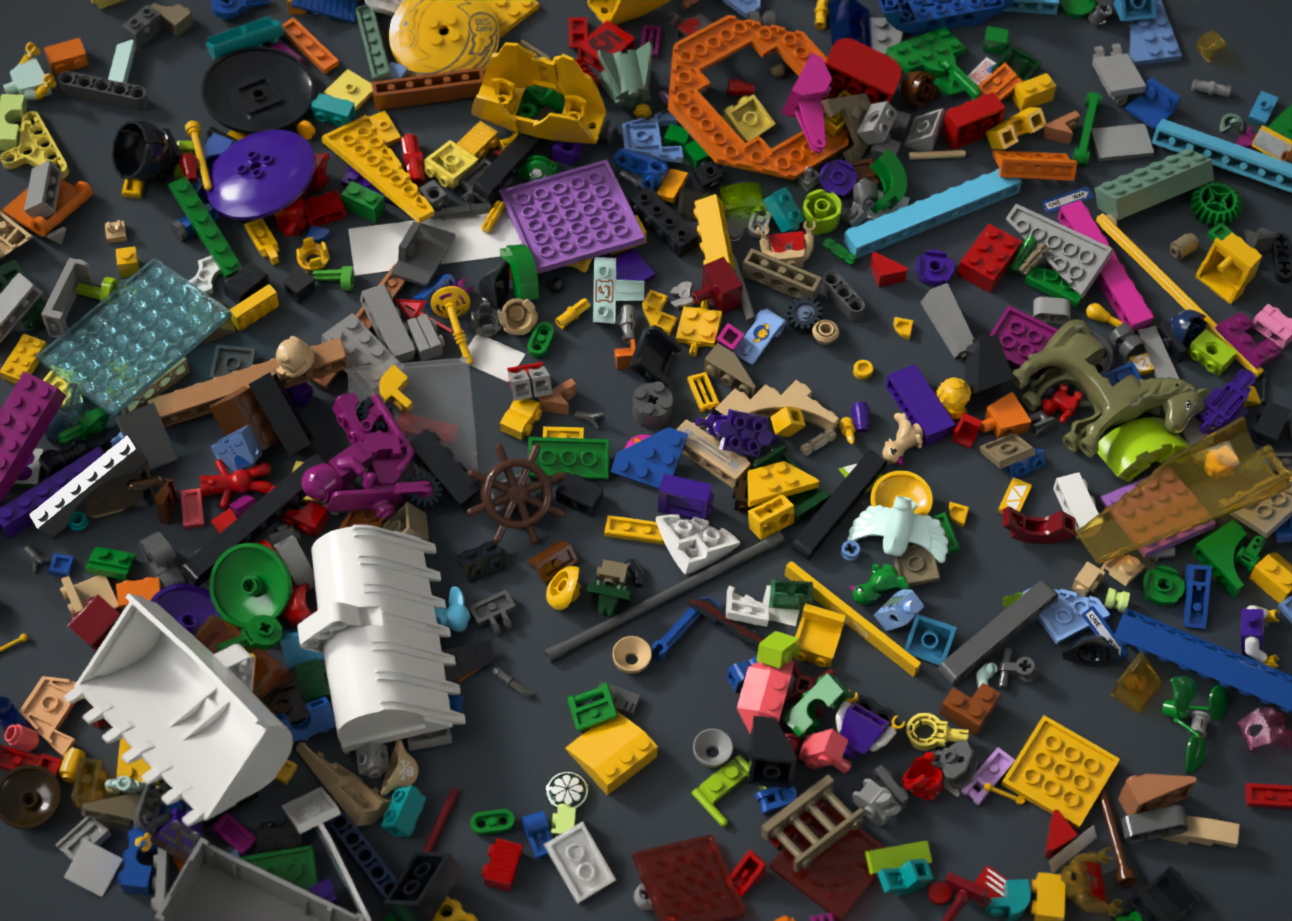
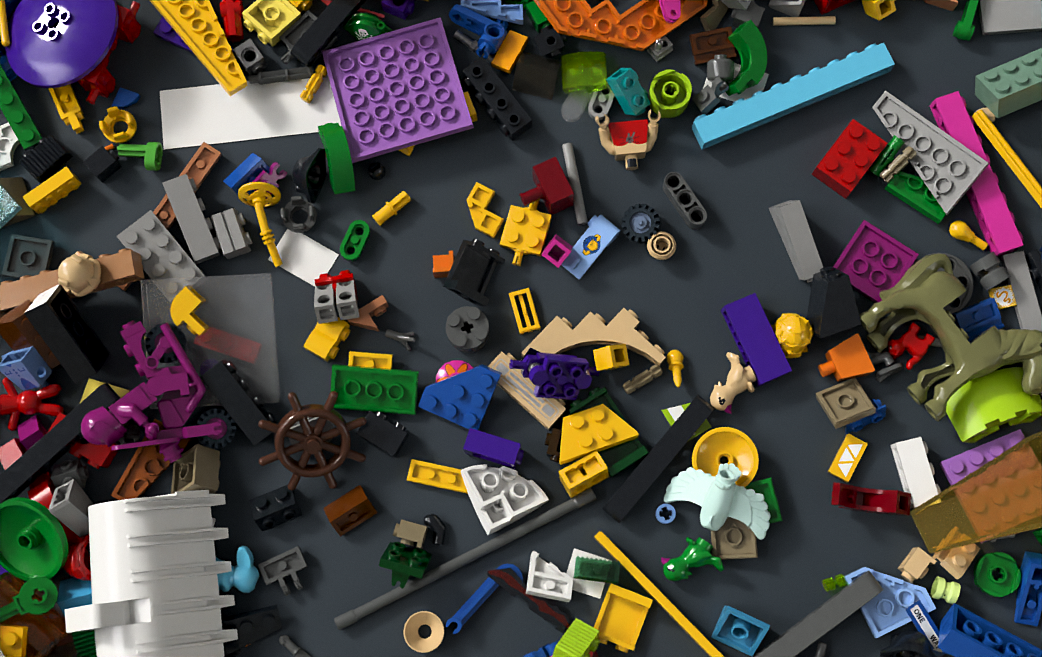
camera: 10 degrees right, 20 degrees up
(301, 394) = (97, 300): dark purple rock -> none
(324, 209) = (132, 68): red brick -> none
(363, 202) = (174, 61): green brick -> none
(413, 309) = (221, 198): piece -> none
(421, 253) = (233, 130): dark grey bracket -> none
(518, 317) = (330, 214): tan helmet -> none
(563, 588) = (358, 548): yellow hat -> none
(609, 290) = (425, 187): light aqua piece -> none
(627, 324) = (449, 225): light grey pin -> none
(632, 267) = (454, 157): dark purple tile -> none
(684, 291) = (513, 186): light grey piece -> none
(713, 230) = (549, 119): yellow brick -> none
(727, 368) = (550, 283): dark tan slope -> none
(780, 275) = (618, 174): dark tan brick -> none
(838, 177) = (691, 50): dark purple tile -> none
(839, 251) = (686, 141): green axle -> none
(861, 414) = (691, 351): dark purple cone -> none
(863, 369) = (698, 290): yellow tile -> none
(887, 271) = (735, 170): red slope -> none
(902, 605) = (711, 594): light blue torso -> none
(903, 327) = (747, 239): yellow tile -> none
(934, 277) = (779, 175): dark purple plate -> none
(958, 513) = (785, 473): yellow tile -> none
(966, 431) = (803, 374): red panel -> none
(1035, 165) = (916, 50): orange fence -> none
(1051, 310) = (911, 227): light grey beam -> none
(1056, 202) = (942, 82): sticker -> none

